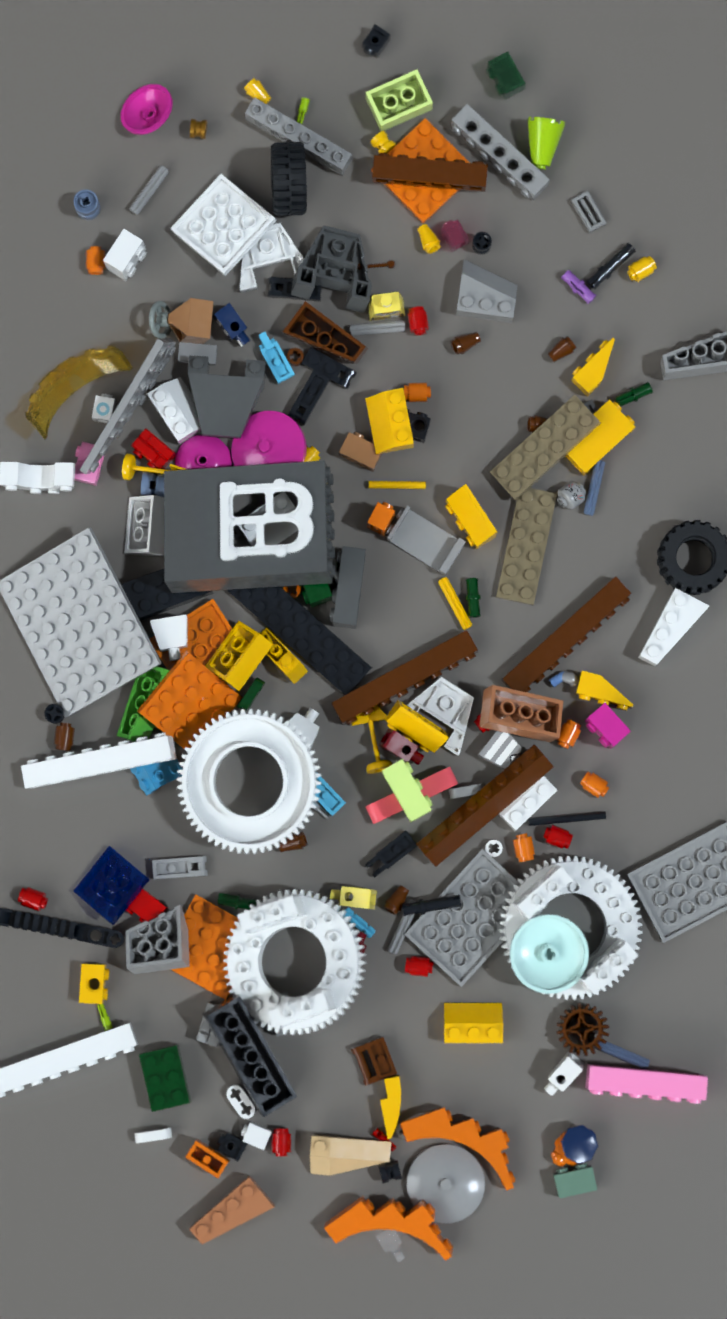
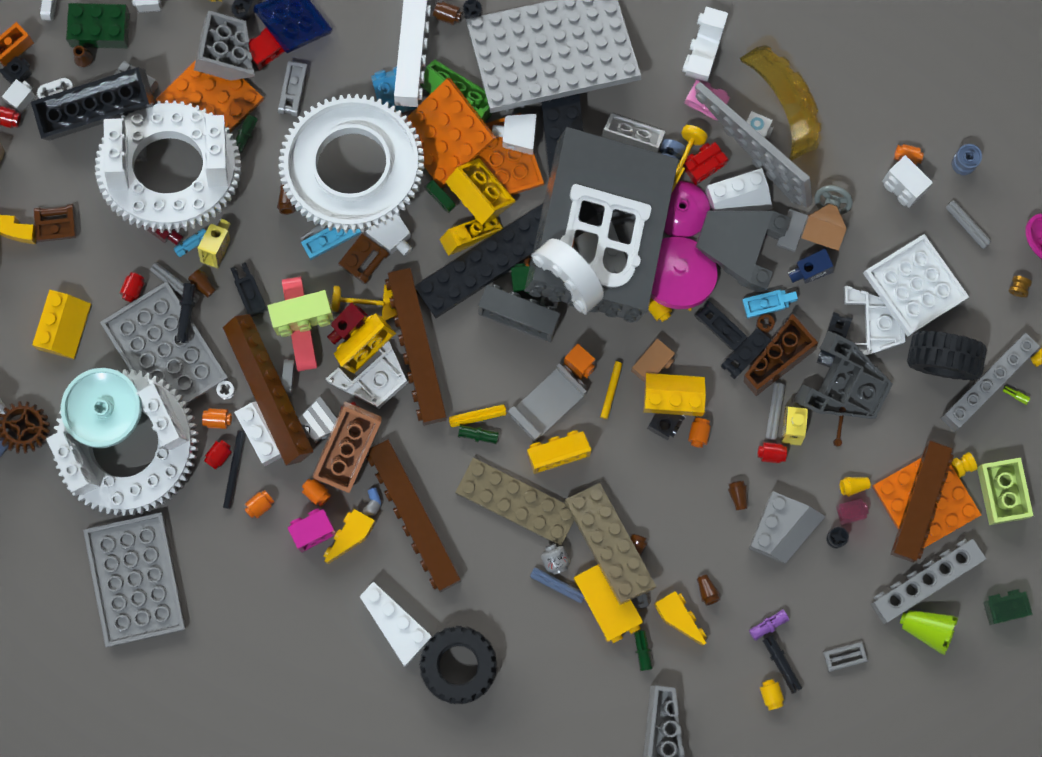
camera: 100 degrees right, 5 degrees down
(204, 1080) = (82, 56): none -> reddish brown cone
(310, 536) = (573, 270): none -> white brick
(329, 758) = (358, 255): none -> reddish brown plate

